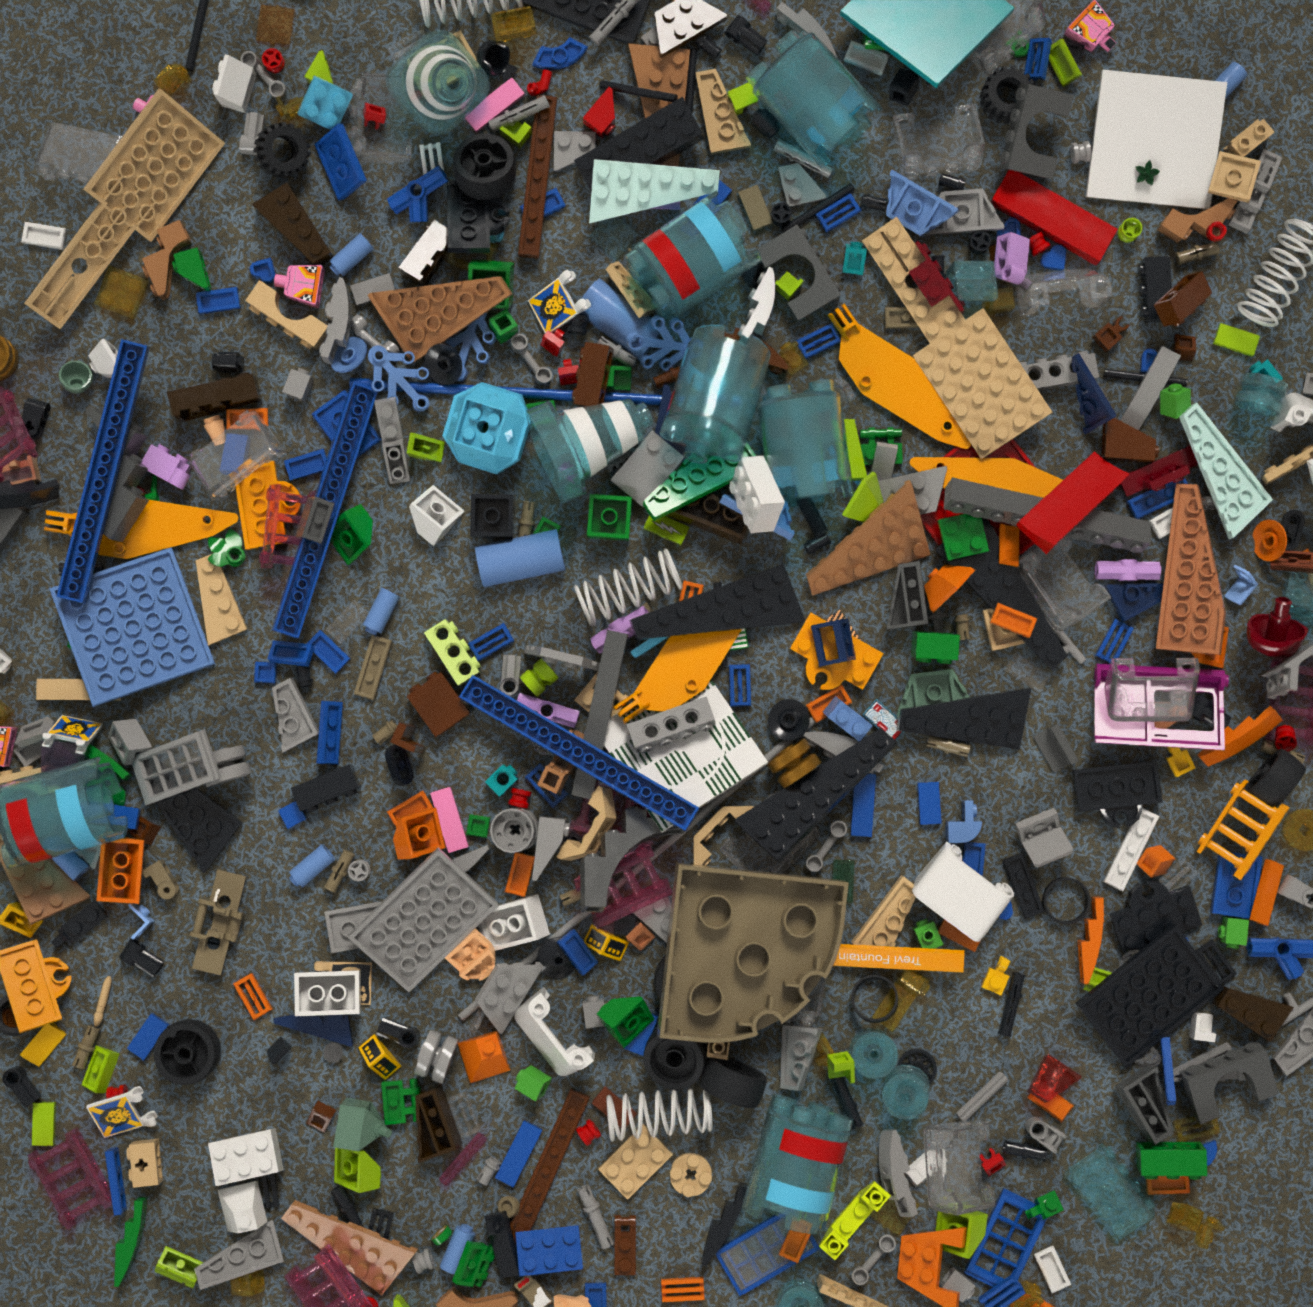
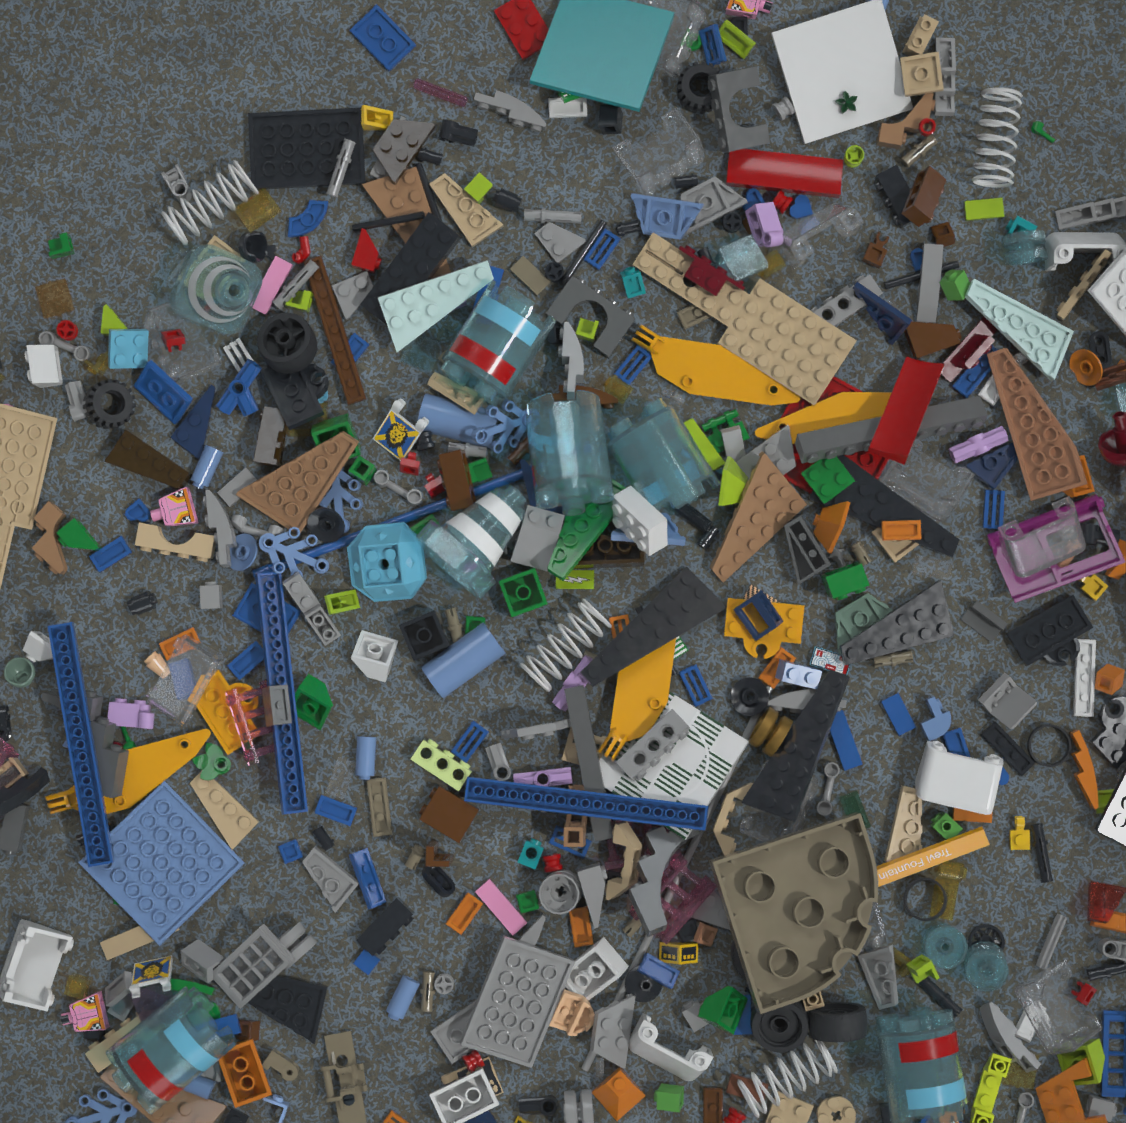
camera: 15 degrees left, 0 degrees up
(121, 292) = (25, 583): clear yellow plate -> none
(214, 397) = (144, 638): dark brown wedge -> none
(290, 653) = (305, 826): blue tile -> none
(353, 959) = (473, 1061): none -> red wheel
(354, 213) = (193, 429): none -> dark blue wing
(418, 834) = (481, 931): orange slope -> none
(539, 677) = (523, 754): lime wheel -> none
(647, 645) = (601, 688): medium azure tile -> none
(813, 95) = (538, 162): clear light blue brick -> none
(1009, 545) = (869, 468): orange tile -> none
(1070, 647) = (958, 530): light grey piece -> none
(1242, 587) = (1080, 417): light blue bracket -> none

